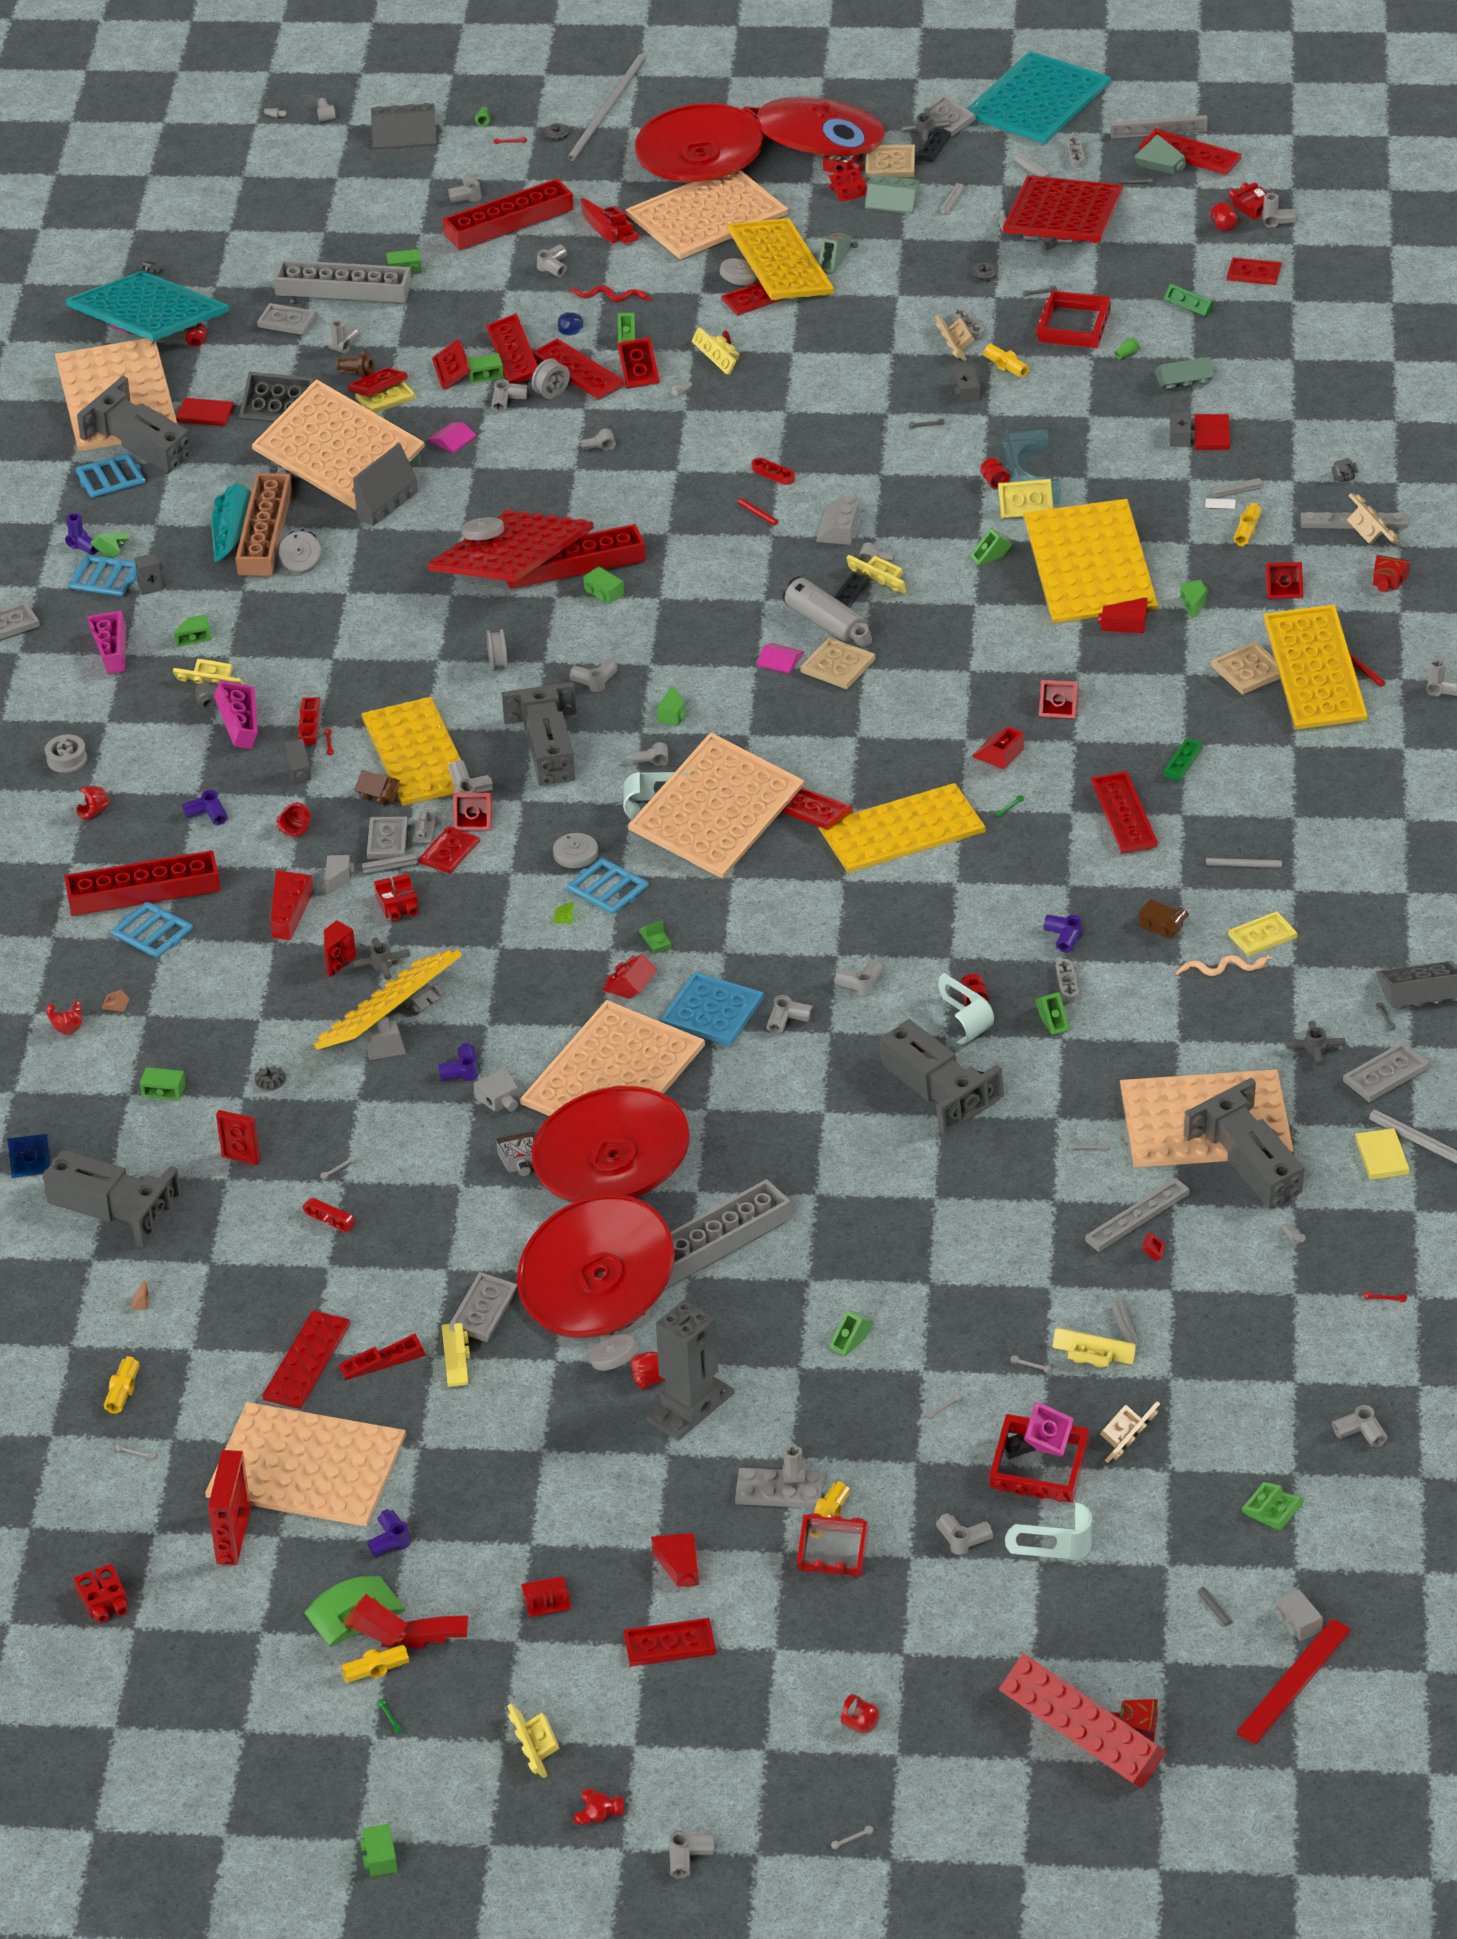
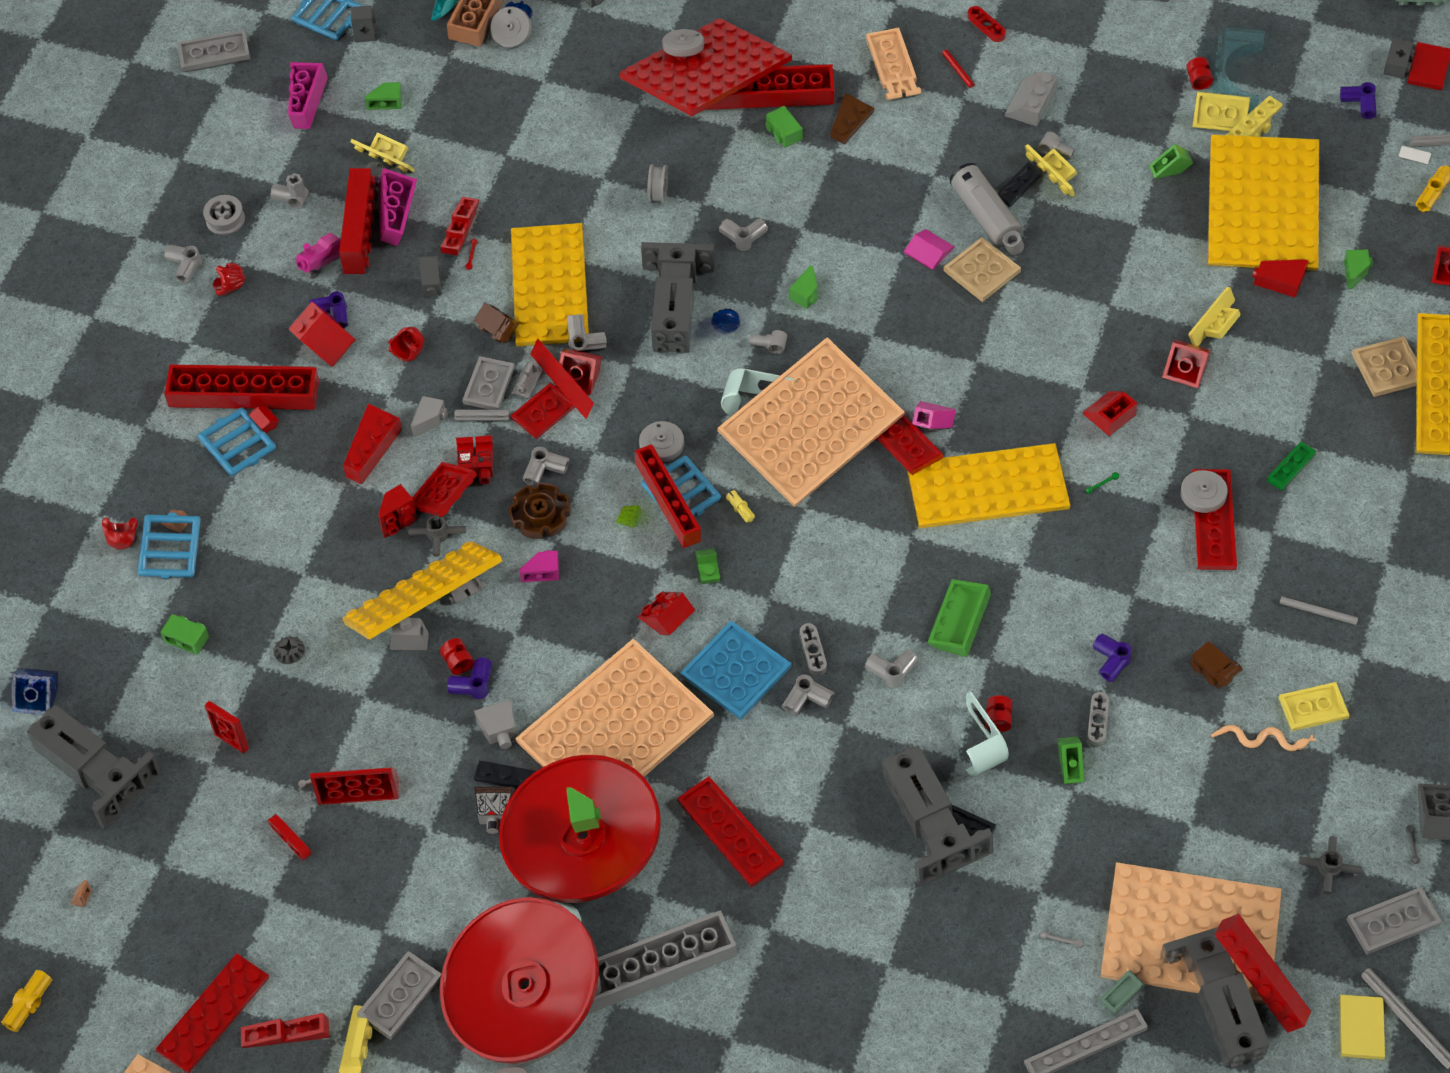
camera: 15 degrees right, 15 degrees up
(44, 794) = (187, 257): none -> light grey piece
(123, 1043) = (191, 555): none -> dark azure bar
(132, 724) = (293, 193): none -> light grey piece
(173, 905) = (264, 418): none -> red piece
(178, 765) = (318, 255): none -> dark pink piece
(206, 826) = (322, 334): none -> red slope
(207, 731) = (358, 221): none -> red brick
(378, 920) = (443, 489): none -> red plate
(380, 1157) = (355, 786): none -> red slope
(438, 1048) = (456, 656): none -> red wheel
(460, 818) = (562, 378): none -> red sticker
(465, 885) = (550, 462): none -> light grey piece
(476, 925) = (539, 510): none -> reddish brown piece
(495, 967) = (541, 567): none -> dark pink slope
(506, 1129) = (501, 774): none -> black plate
(599, 886) = (667, 496): none -> red brick
(603, 747) = (725, 320): none -> clear blue hair
(611, 1126) = (582, 811): none -> bright green slope
(666, 569) = (850, 118): none -> reddish brown wing
(670, 886) = (740, 506): none -> light yellow axle
(692, 517) = (893, 63): none -> light nougat hinge
(751, 1128) = (730, 831): none -> red plate
(779, 973) = (810, 657): none -> light grey beam
(832, 781) = (933, 416): none -> dark pink slope
(911, 929) = (960, 617): none -> bright green slope
(1064, 495) = (1258, 120): none -> light yellow bracket
(1075, 660) = (1216, 320): none -> light yellow bracket
(1108, 789) = (1204, 491): none -> light grey wheel
(1157, 1170) = (1122, 992): none -> sand green tile
(1158, 463) = (1364, 94): none -> dark purple piece
(1281, 1117) = (1263, 973): none -> red brick

